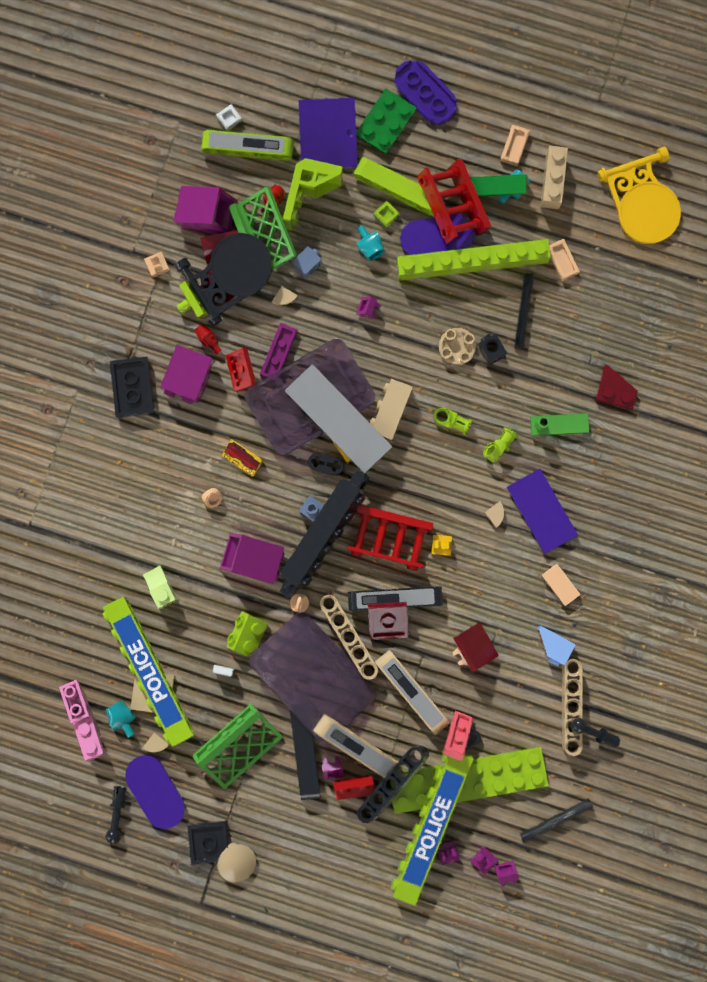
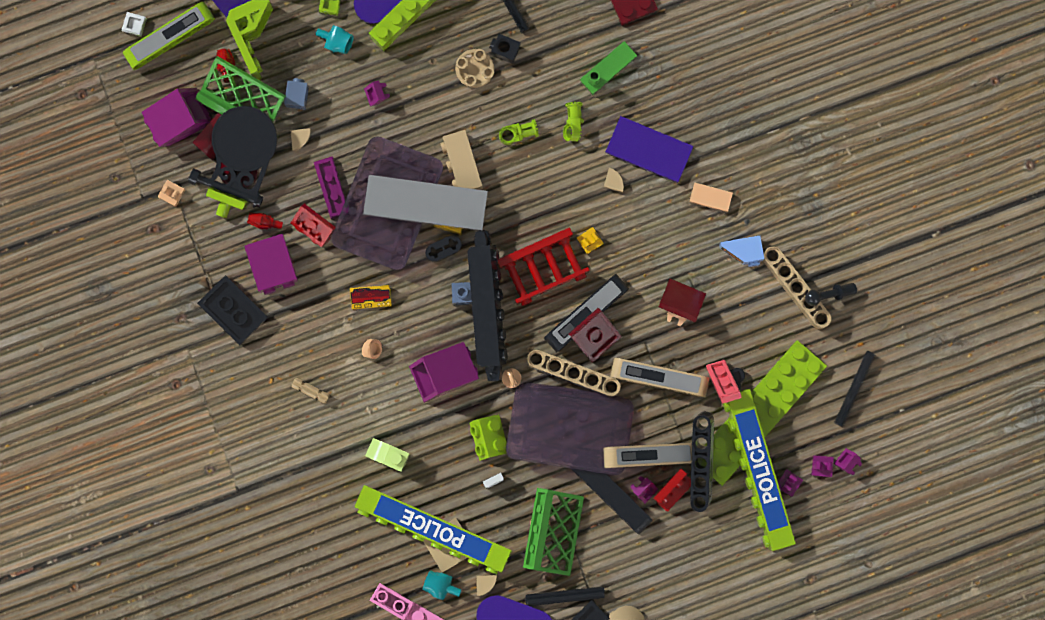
camera: 45 degrees left, 0 degrees up
(141, 492) = (310, 390): none -> tan axle
(208, 802) = (565, 596): none -> black axle

